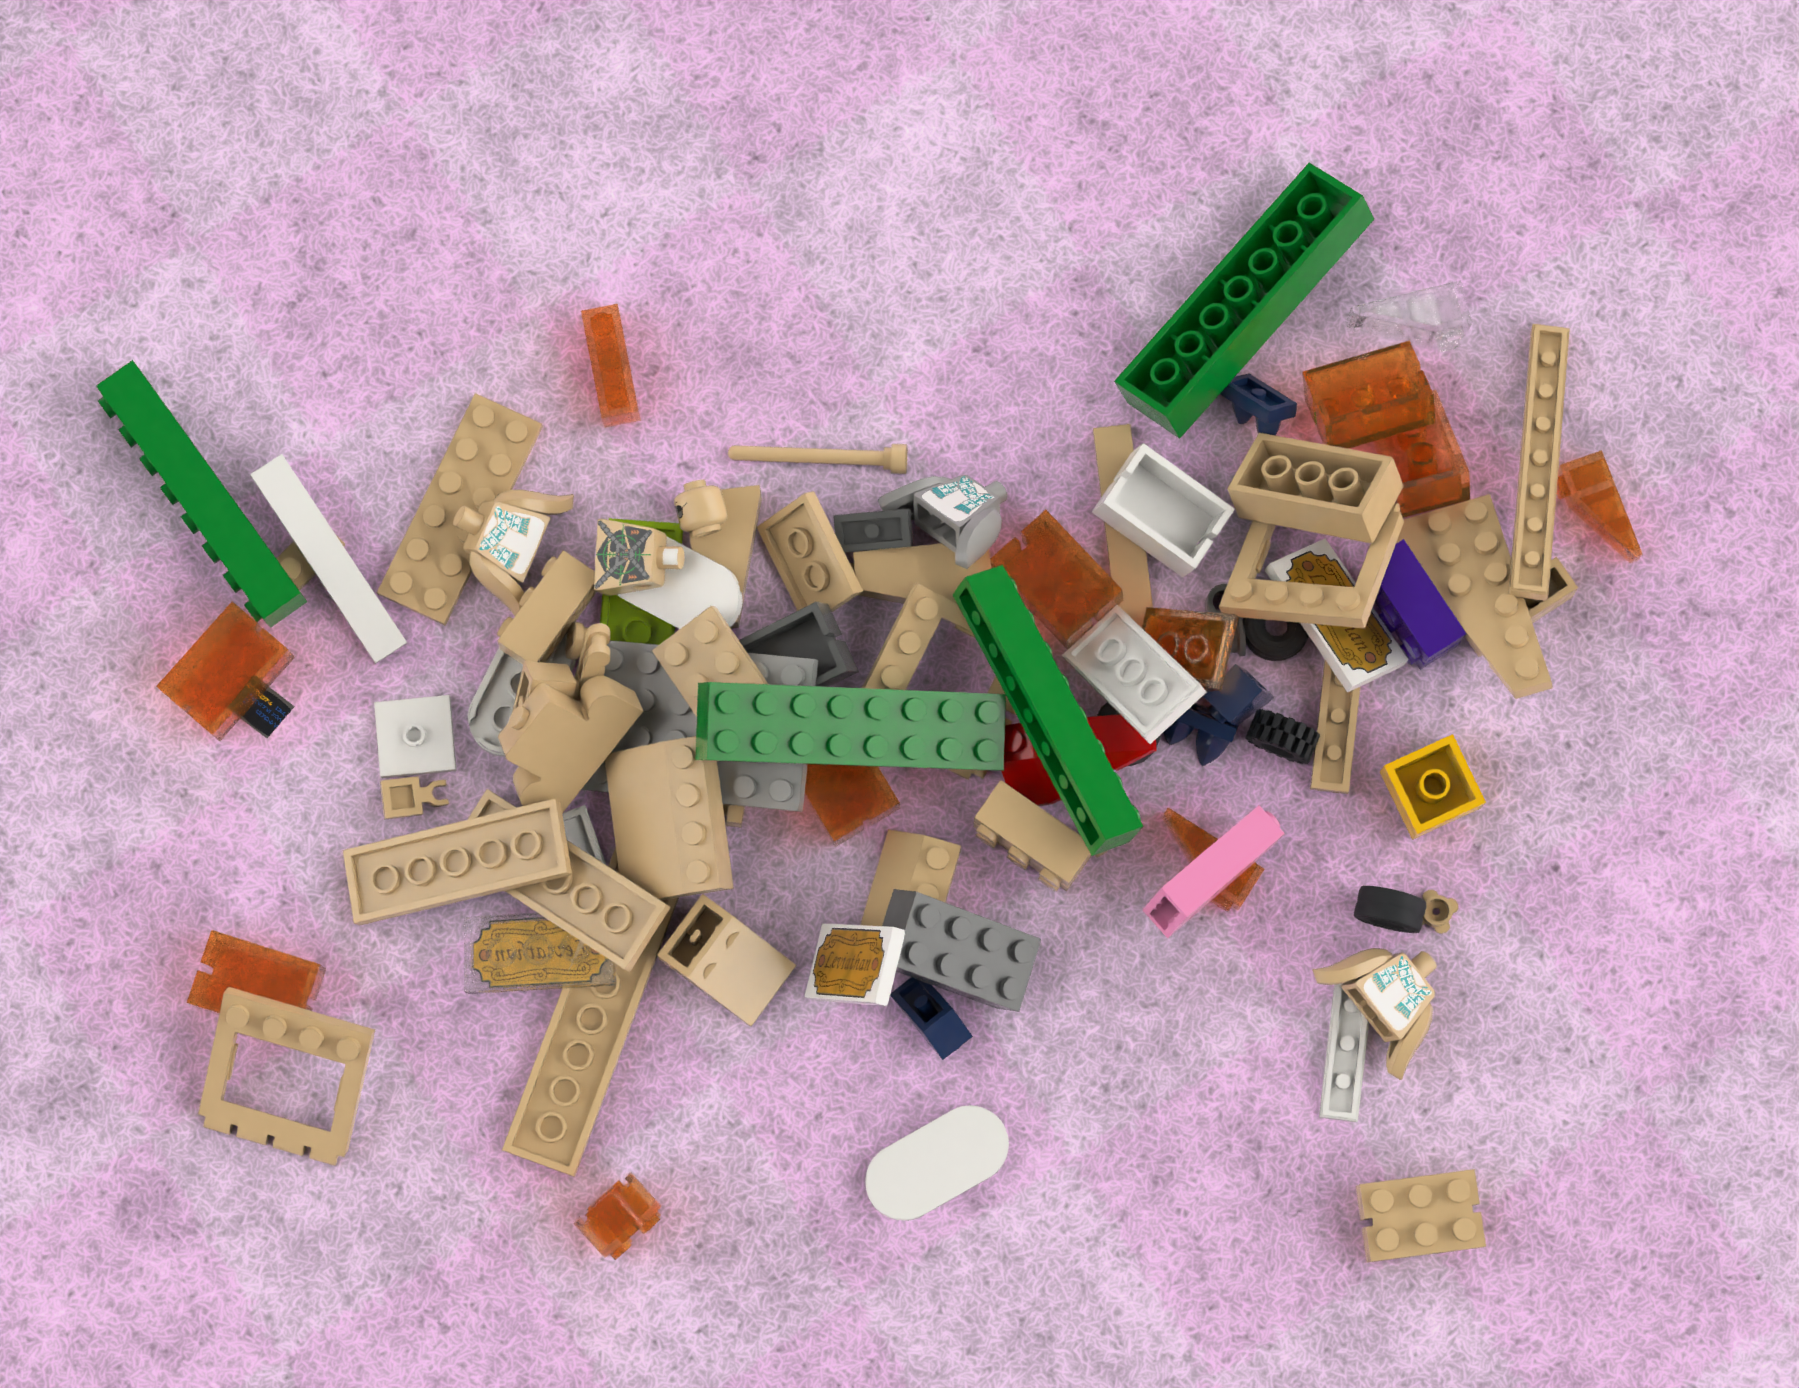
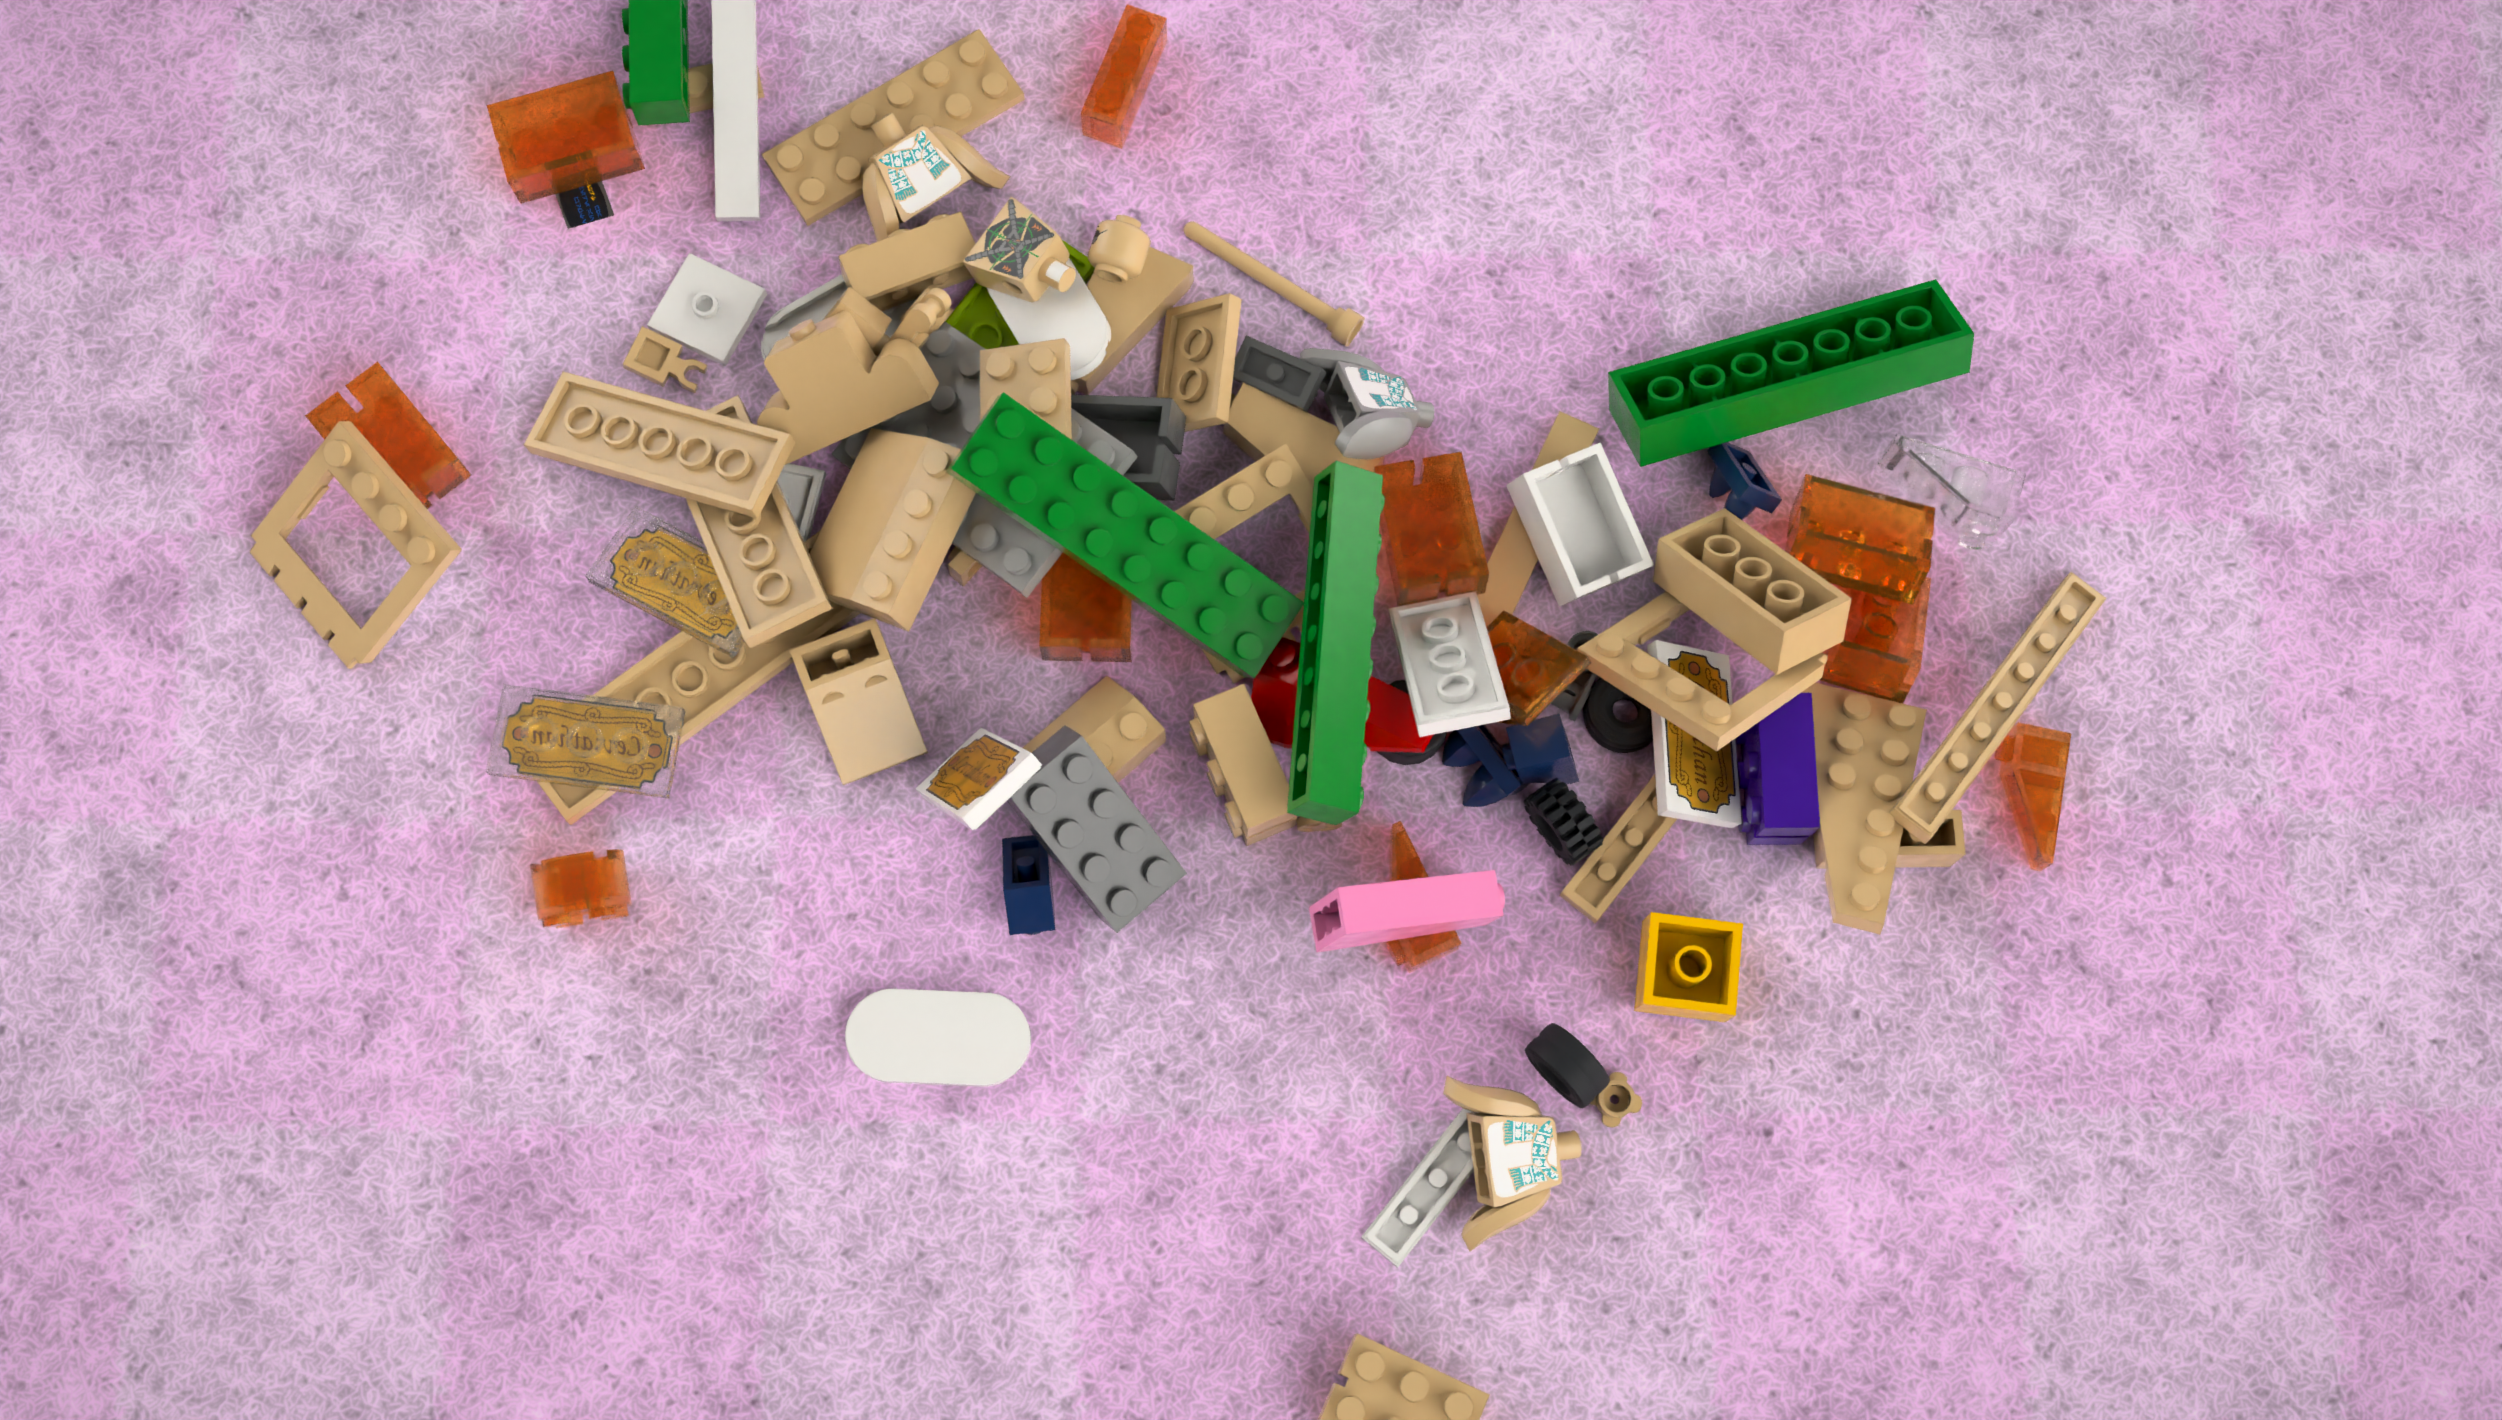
camera: 25 degrees right, 5 degrees down
(549, 1110) = (585, 741): none -> clear tile

